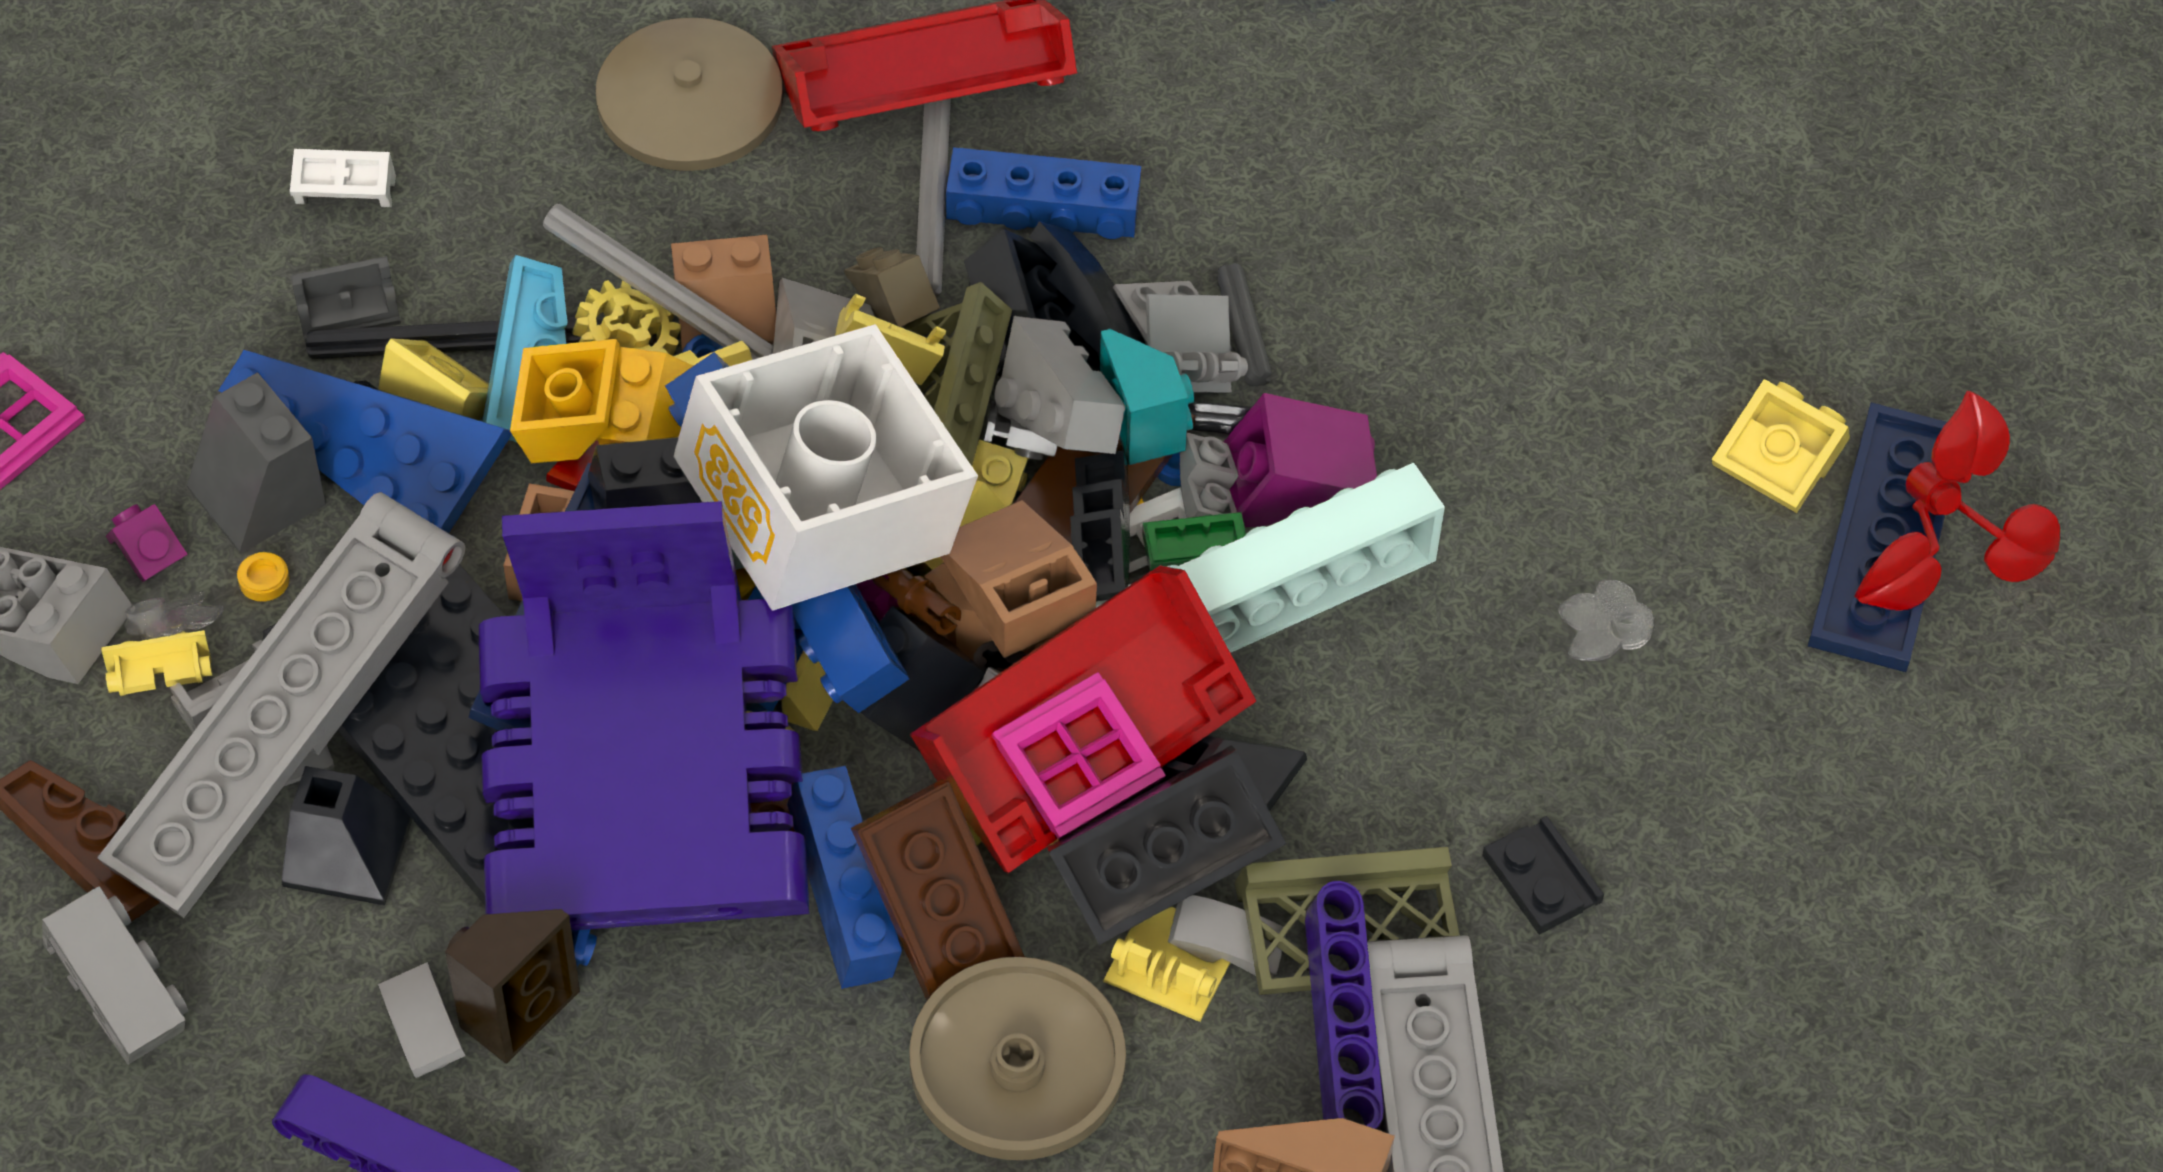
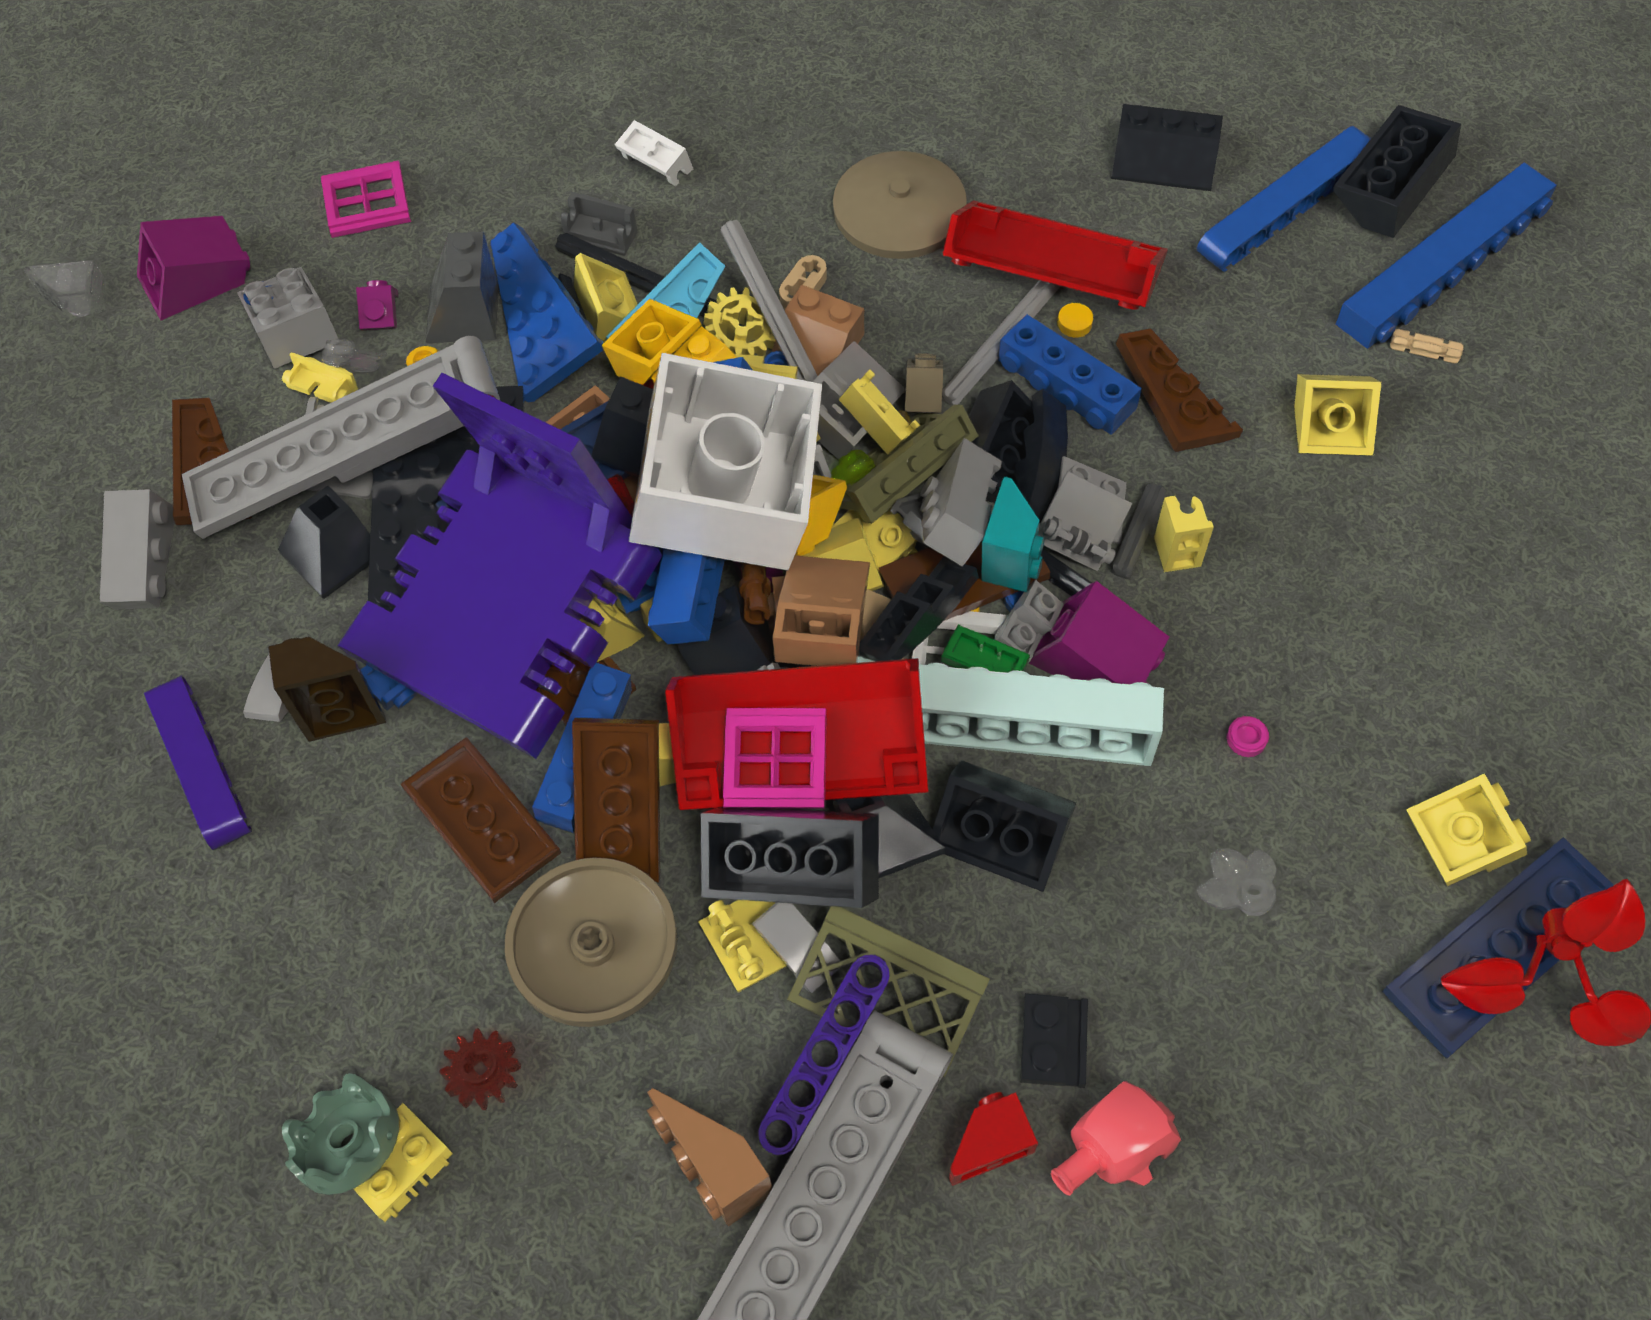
camera: 40 degrees right, 5 degrees up
(661, 243) = (798, 277): none -> tan beam
(779, 1022) = (481, 819): none -> reddish brown tile
(999, 128) = (1075, 320): none -> yellow tile
(1191, 168) = (1174, 395): none -> reddish brown wing
(1301, 305) = (1182, 536): none -> light yellow hinge
(1341, 699) = (1002, 824): none -> black slope
(1358, 88) = (1336, 414): none -> light yellow slope
(1509, 476) = (1247, 736): none -> dark pink tile
(1557, 992) = (993, 1138): none -> red slope
(1674, 919) = (1119, 1139): none -> coral piece

